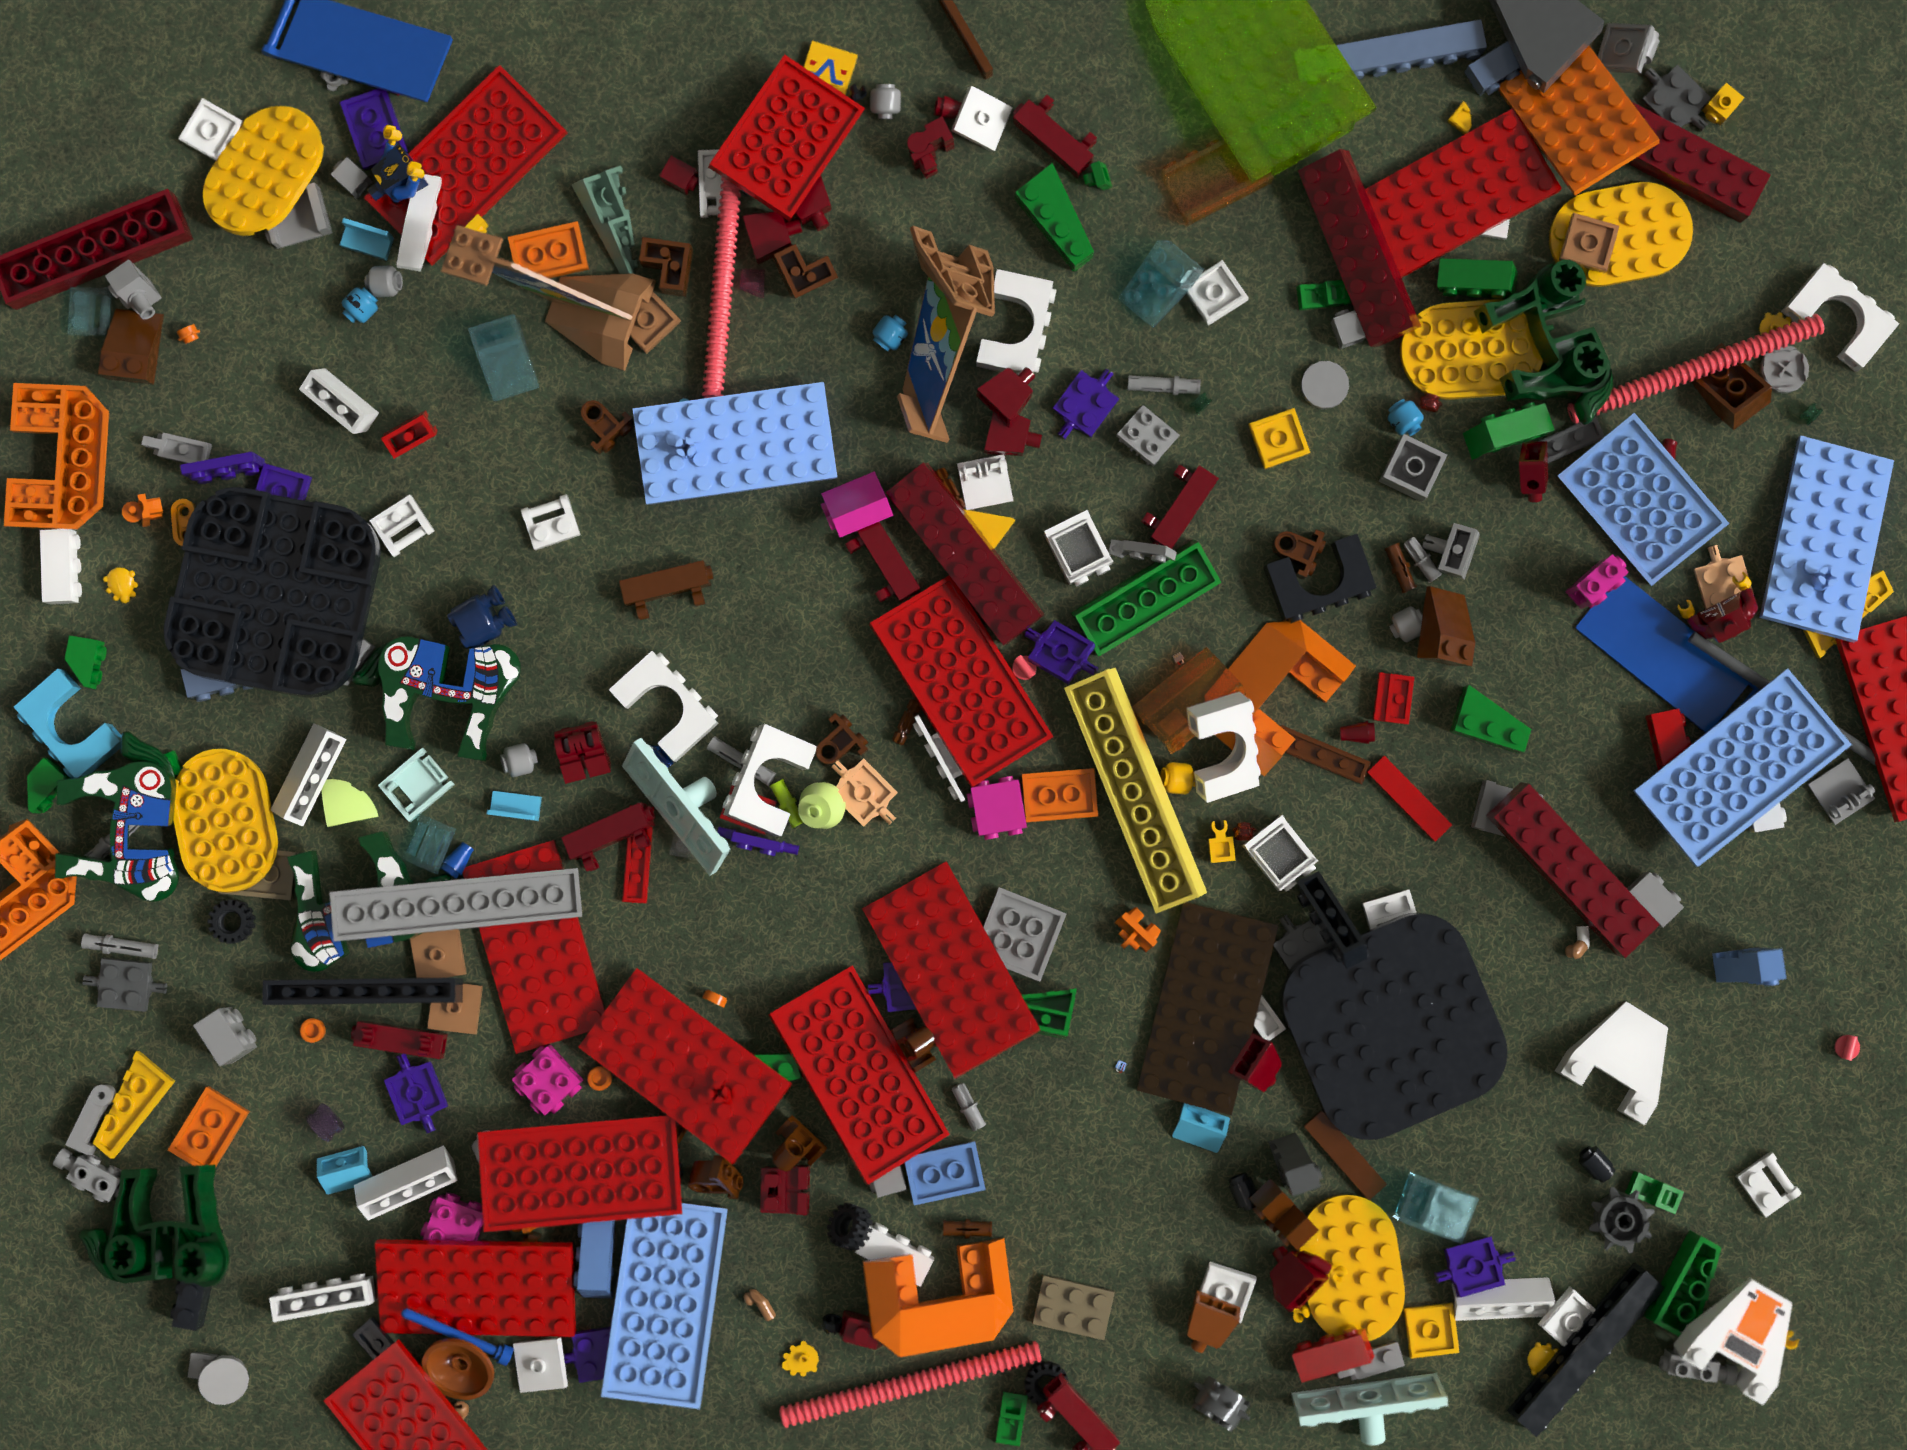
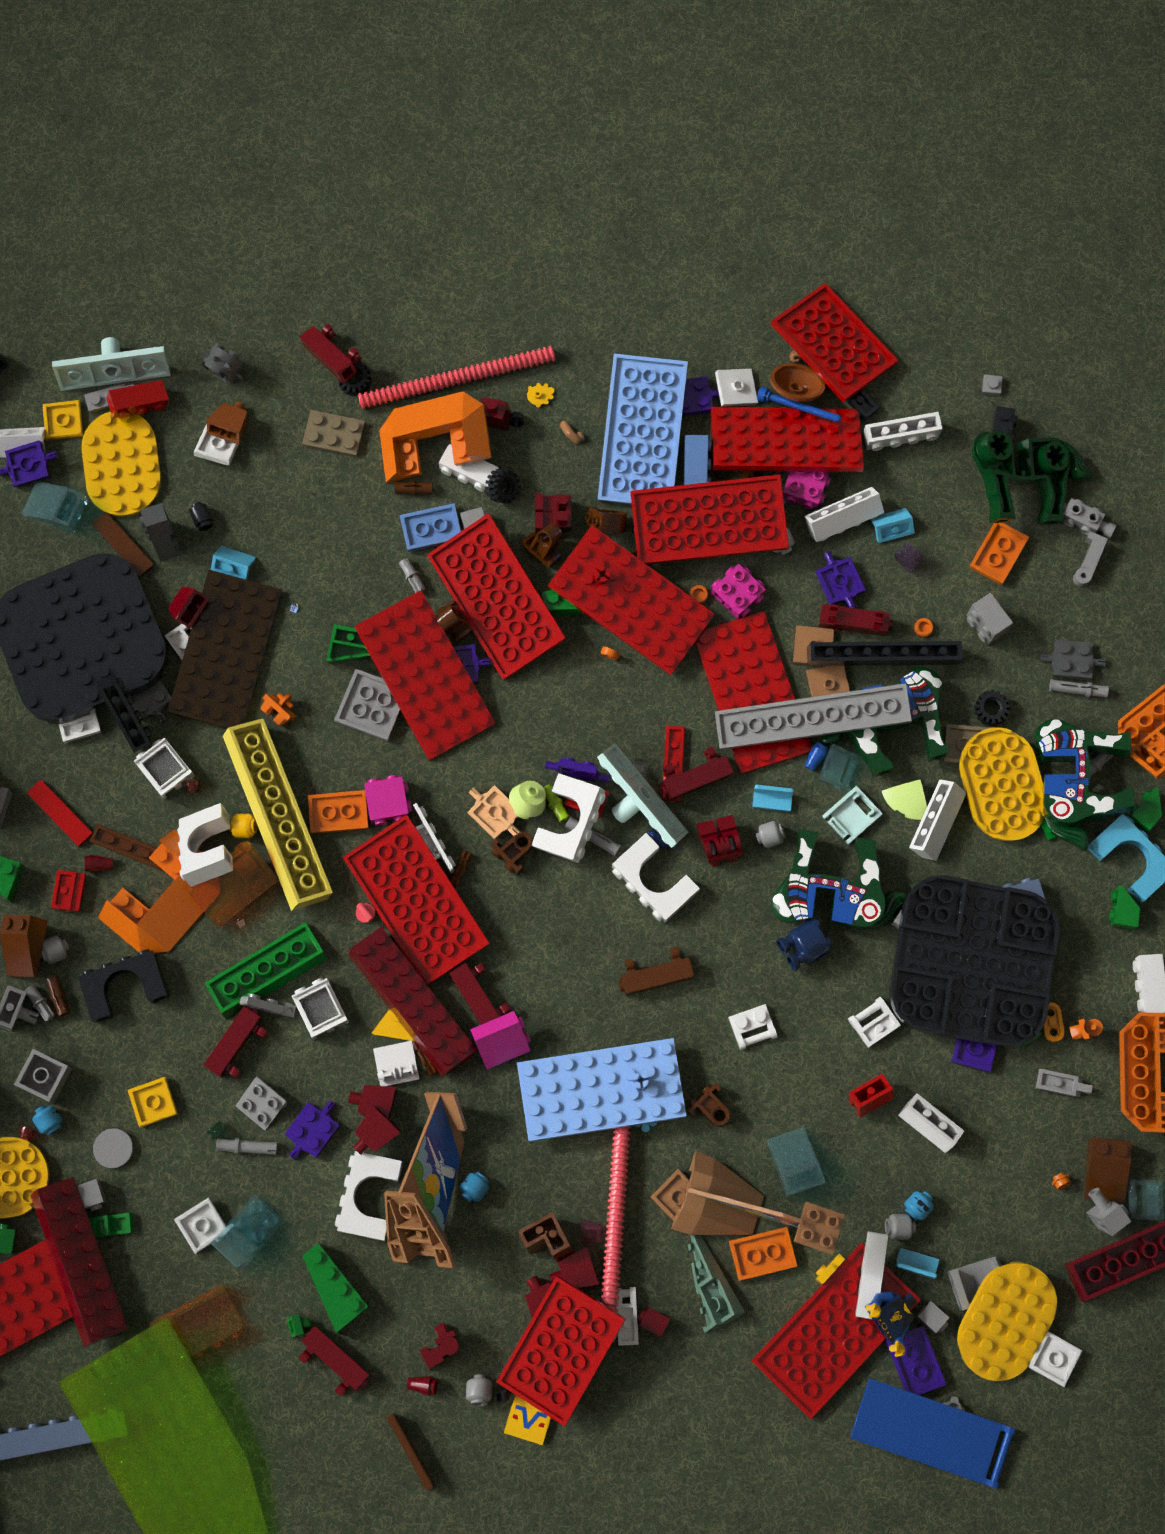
camera: 175 degrees right, 10 degrees down
(121, 584) = (1101, 973): yellow piece -> none
(139, 1094) = (1055, 577): yellow wing -> none
(223, 467) = (1022, 1064): dark purple plate -> none
(223, 1380) = (974, 374): light grey tile -> none
(674, 261) = (655, 1245): reddish brown brick -> none
(981, 118) = (396, 1375): white plate -> none
(1011, 1419) = (381, 354): green slope -> none
(1061, 652) = (334, 923): dark purple plate -> none
(1221, 847) = (210, 773): yellow plate -> none
(1282, 1215) = (174, 498): reddish brown brick -> none
(1299, 1278) = (160, 453): dark red torso -> none
(1302, 550) = (138, 1008): reddish brown pin -> none

